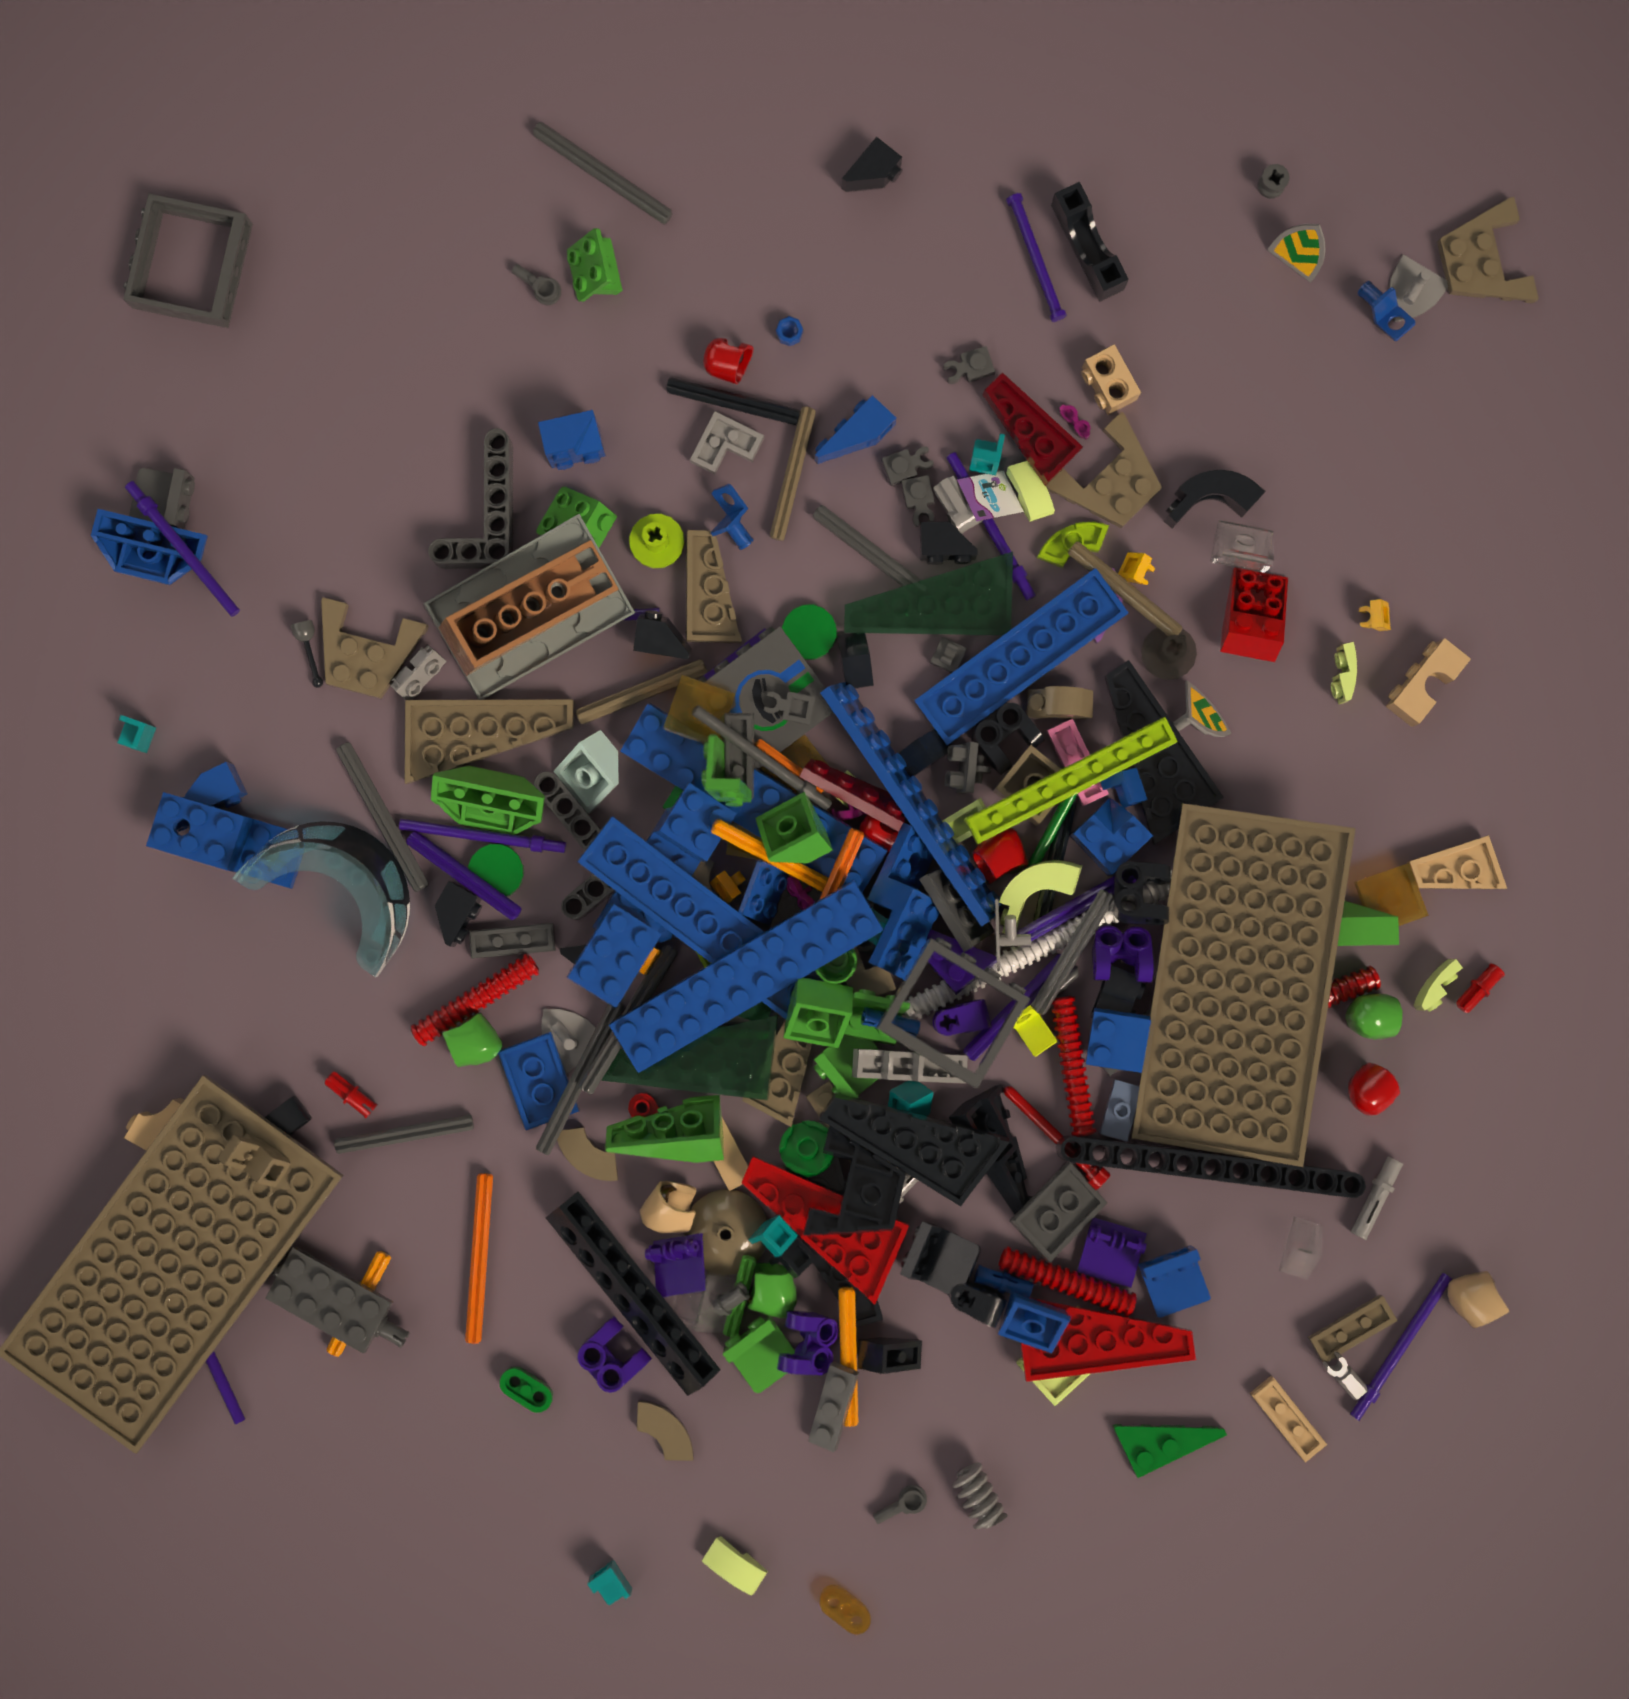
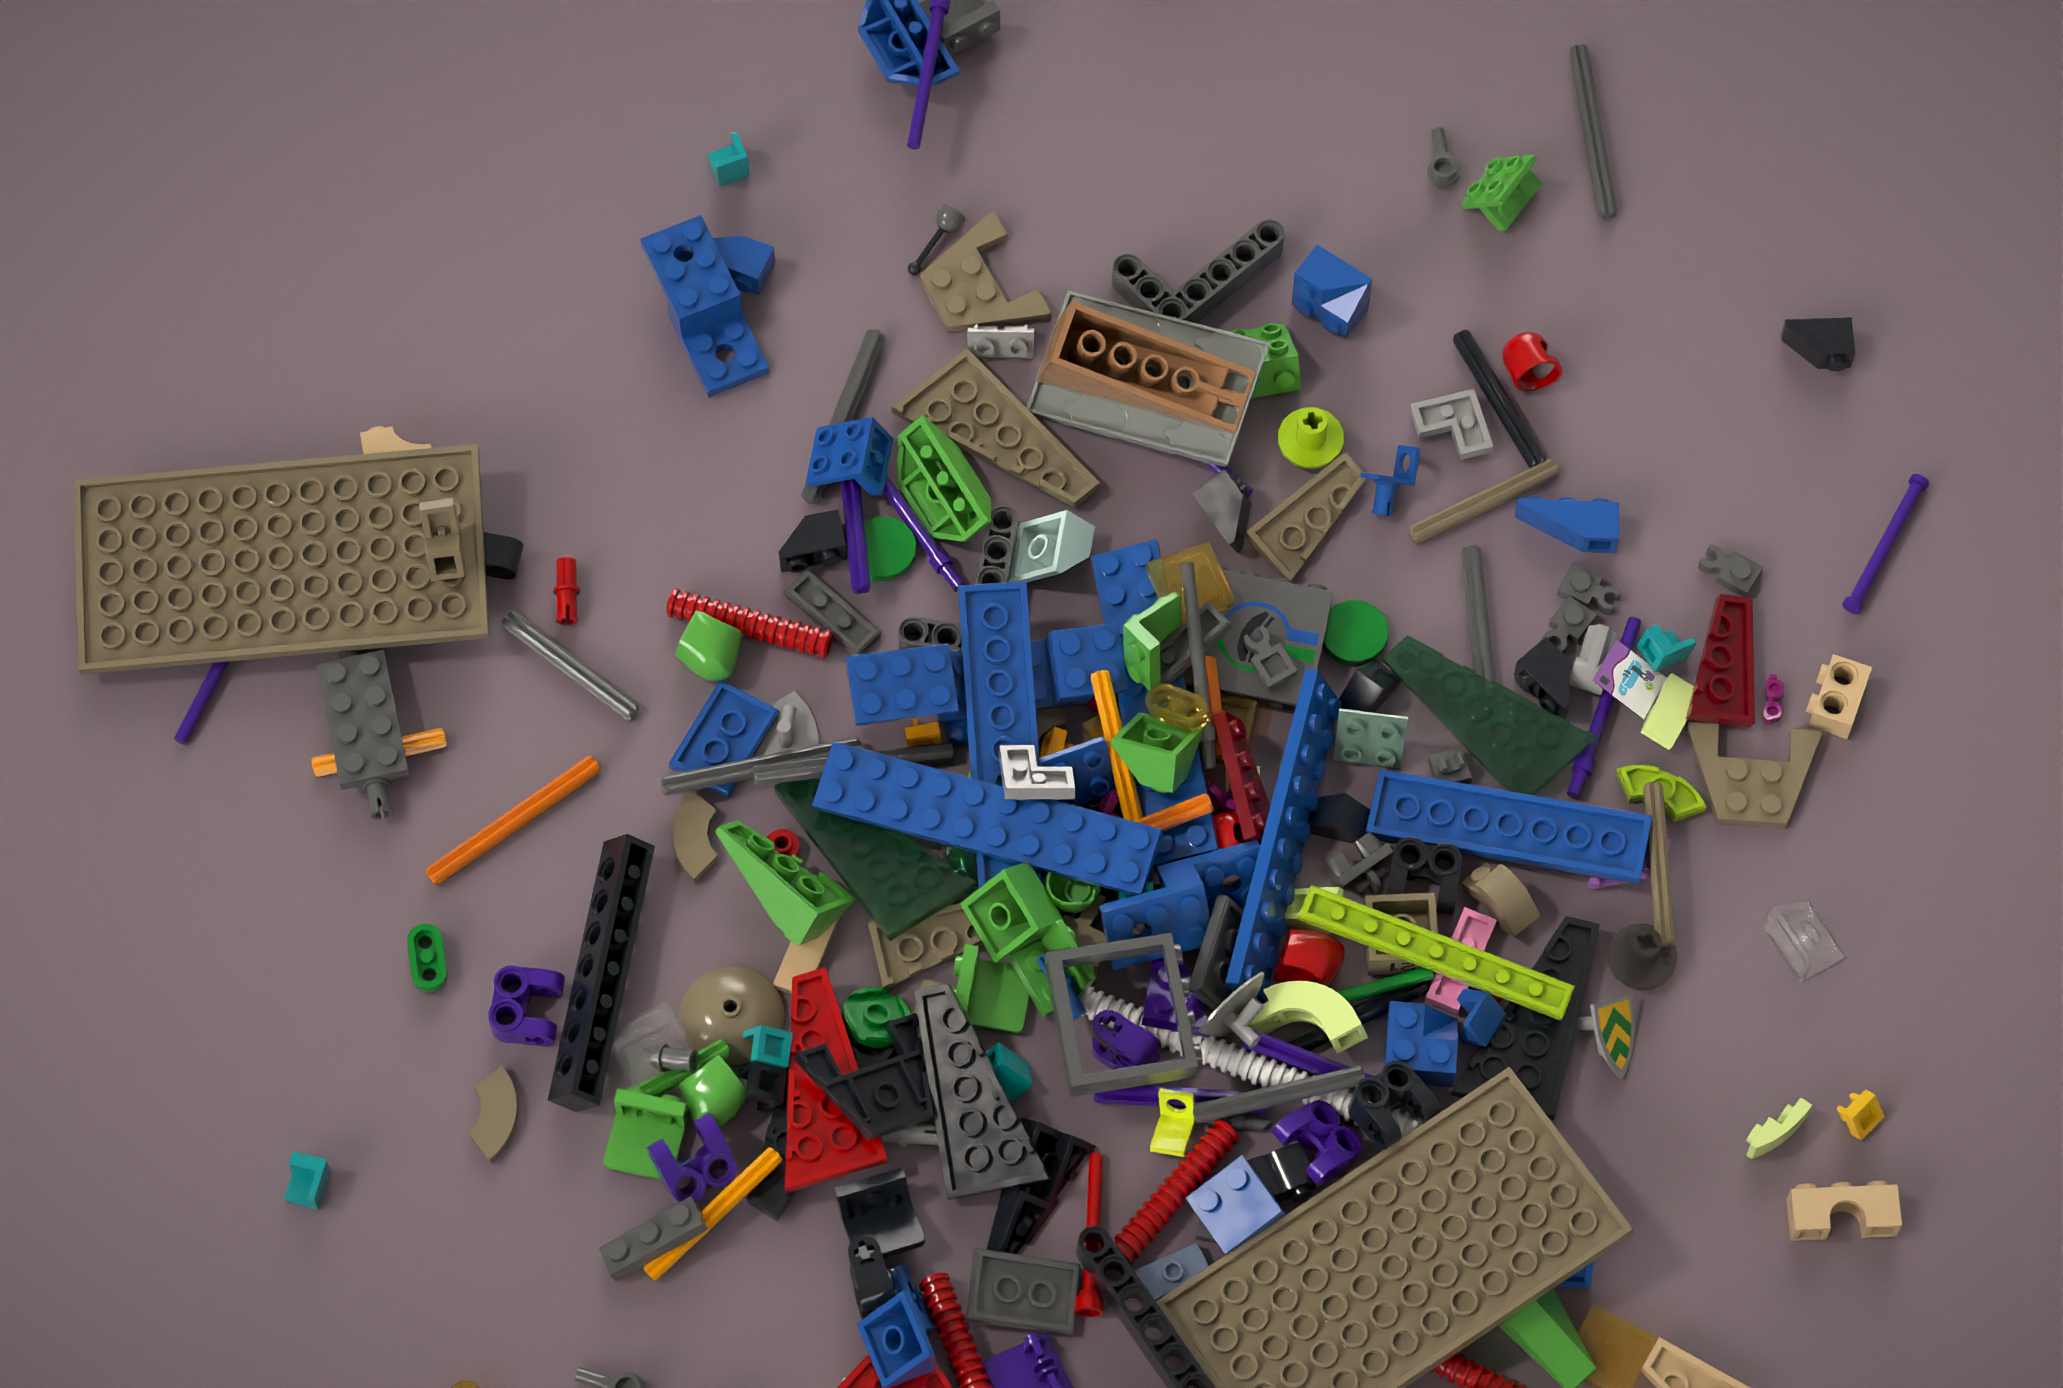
camera: 50 degrees right, 20 degrees down
(358, 864) = (782, 437): clear light blue windscreen -> none
(417, 839) = (851, 451): none -> blue bracket
(639, 692) = (1151, 530): dark tan axle -> none
(669, 1208) = (710, 939): tan piece -> none
(678, 1264) = (665, 988): dark purple hinge -> none
(734, 1567) = (421, 1277): yellowish green slope -> none
(747, 935) = (1026, 781): none -> light grey plate
(780, 795) = (1180, 708): none -> clear yellow plate
(789, 331) = (1608, 393): blue tile -> none
(889, 1354) = (748, 1252): black slope -> none
(892, 690) = (1370, 738): none -> sand green hinge
(902, 1066) = (1031, 1039): light grey slope -> none
(1078, 224) = (1943, 571): black arch -> none
(1135, 567) = (1688, 860): yellow tile -> none
(1221, 485) = (1830, 863): black arch -> none
(1255, 615) = (1751, 1003): red slope -> none

